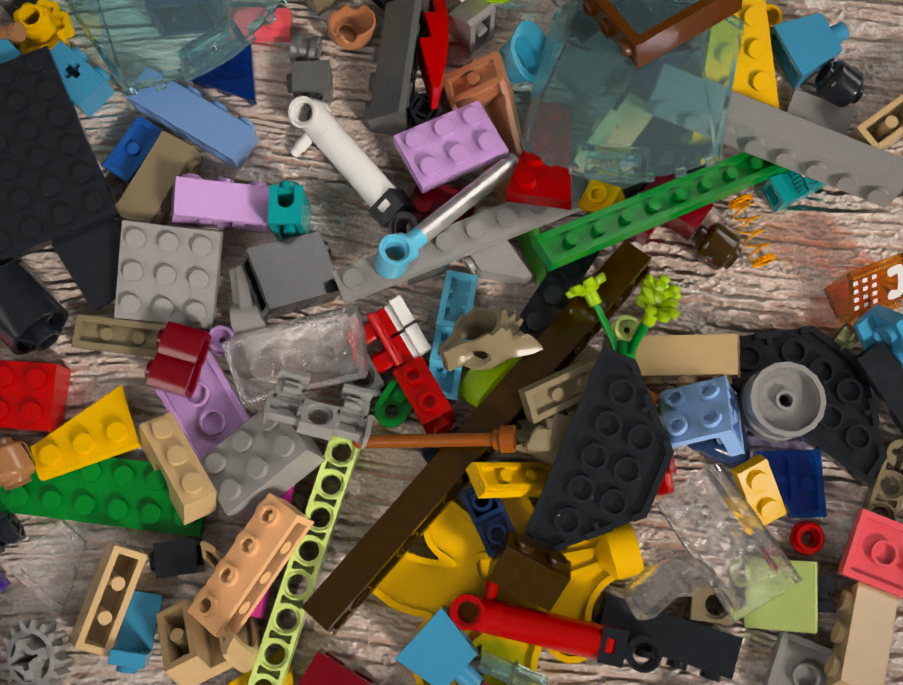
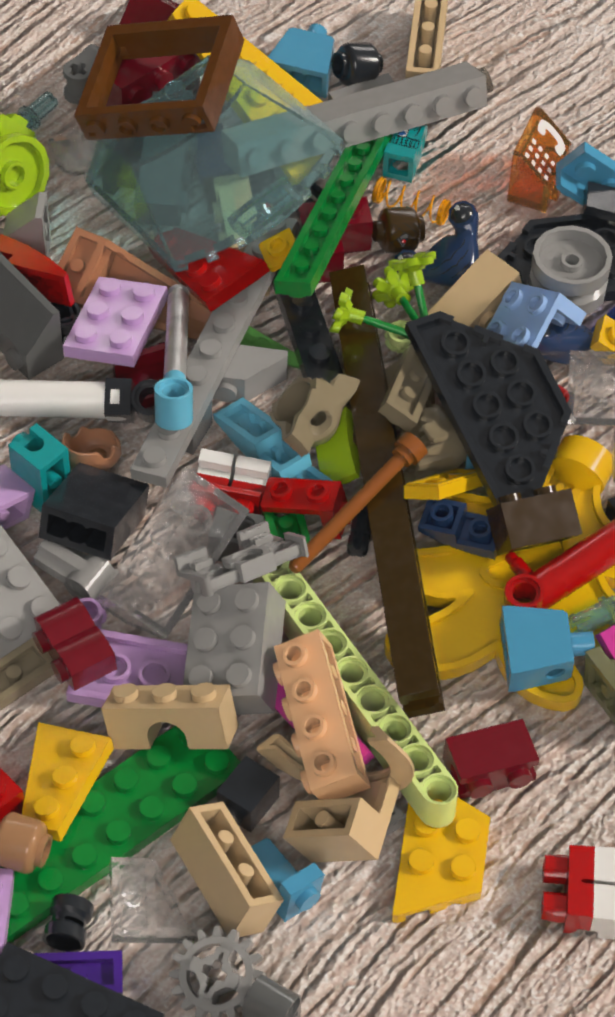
camera: 50 degrees left, 25 degrees down
(342, 225) = (93, 447): none -> nougat hair
(523, 52) = (96, 221): medium azure piece -> none
(722, 305) = (453, 252): none -> dark blue head
(846, 337) = (561, 207): olive plate -> none

